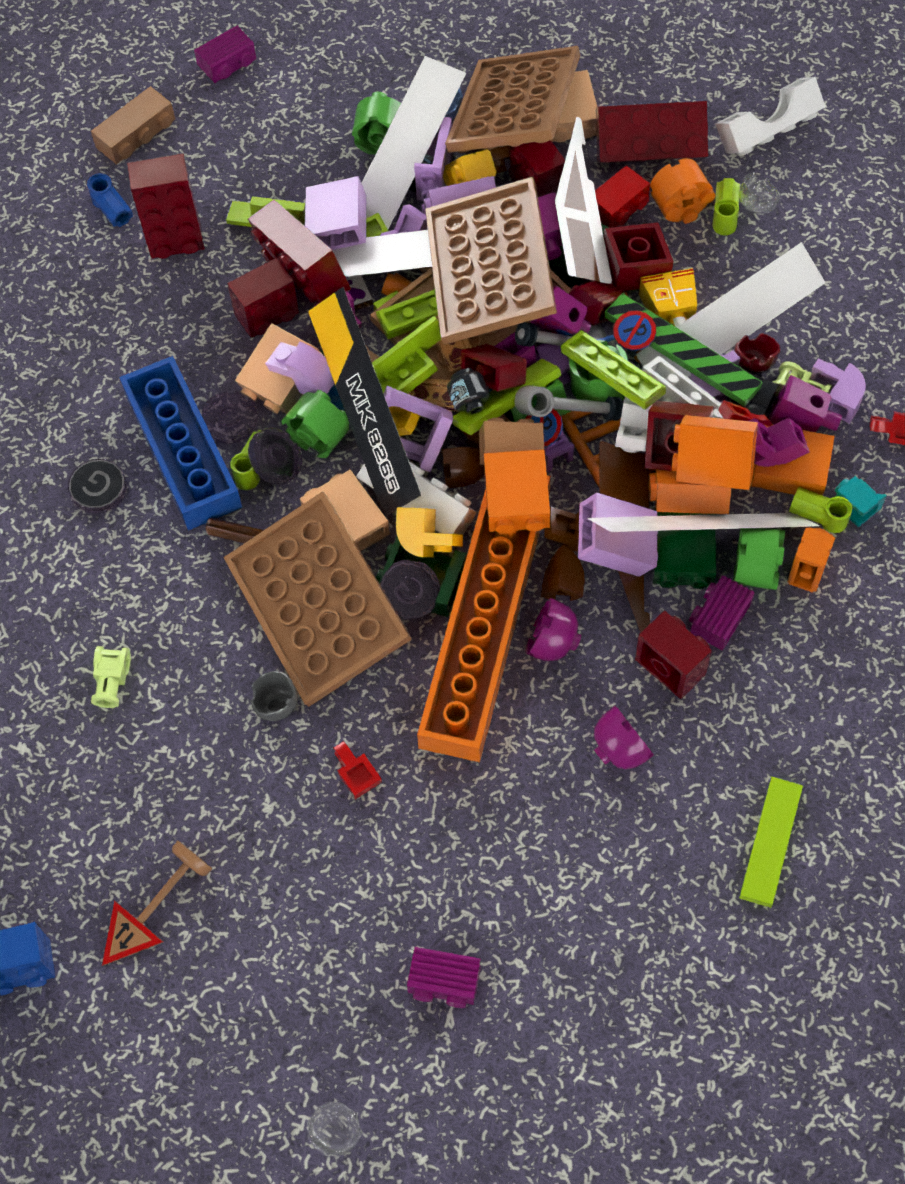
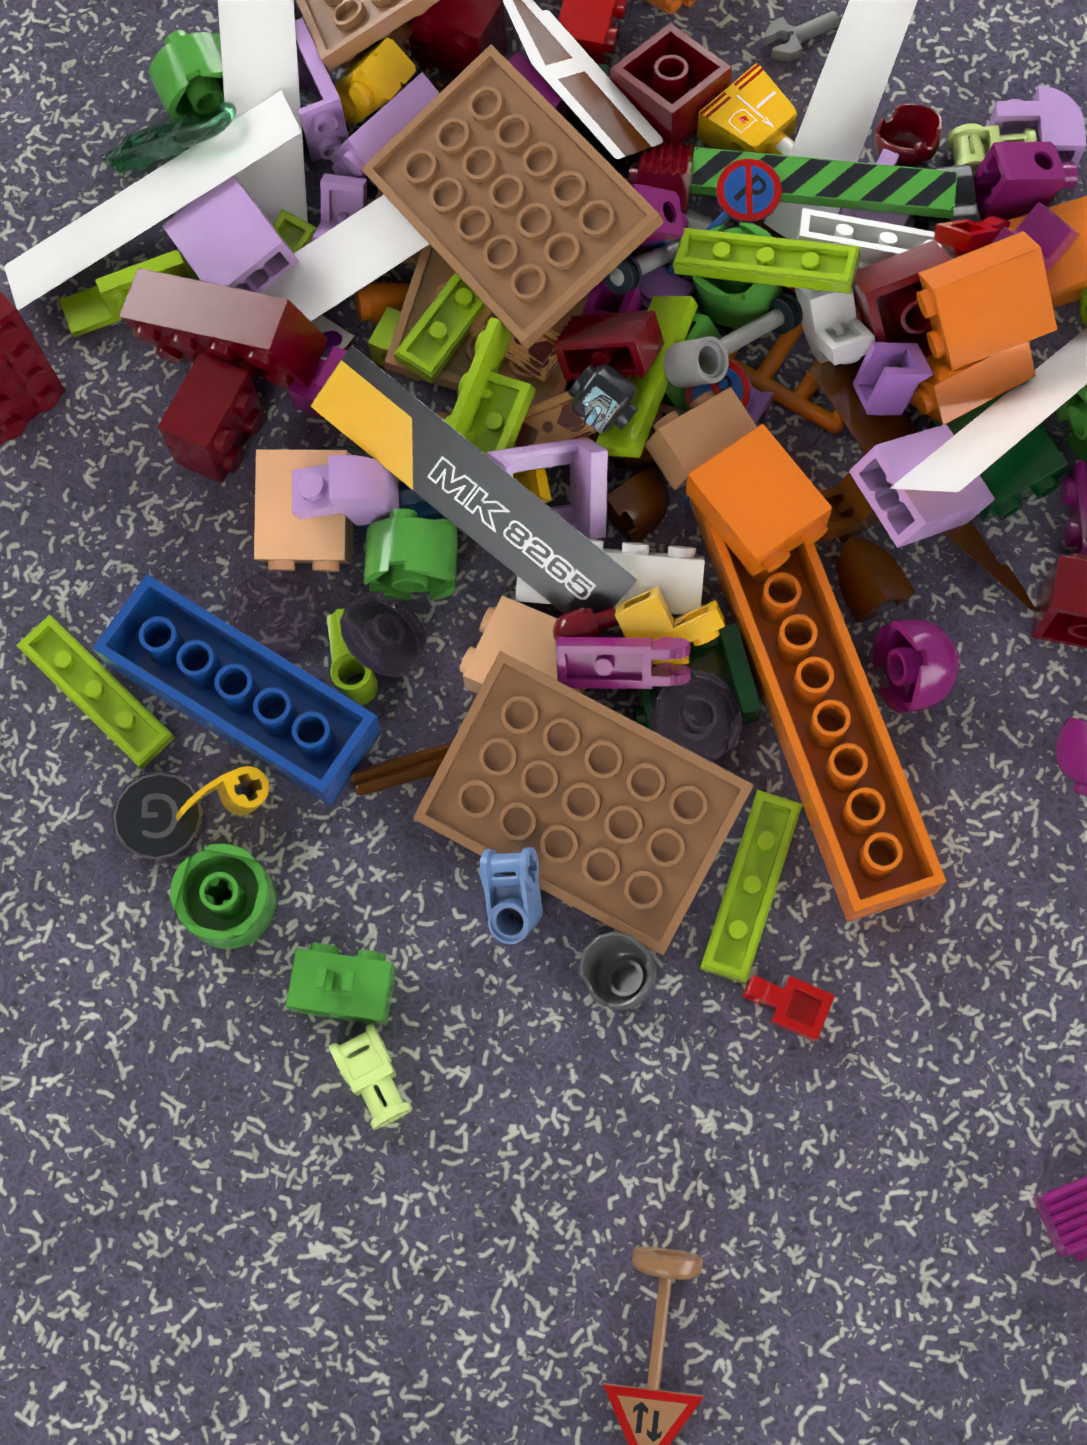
camera: 30 degrees left, 10 degrees up
(98, 540) = (211, 874): none -> bright green brick
(111, 406) = (96, 692): none -> lime tile
(126, 620) = (341, 985): none -> bright green brick
(141, 485) = (226, 787): none -> yellow panel
(245, 625) = (512, 883): none -> medium blue piece
(311, 171) = (151, 200): none -> white sticker
(342, 146) = (166, 139): none -> clear green plate
(377, 506) = (584, 623): none -> dark red cylinder
(379, 699) = (751, 887): none -> lime tile
(383, 533) = (620, 662): none -> magenta hinge
(641, 468) = (890, 377): none -> medium lavender window
(732, 268) = (797, 34): none -> light grey bar

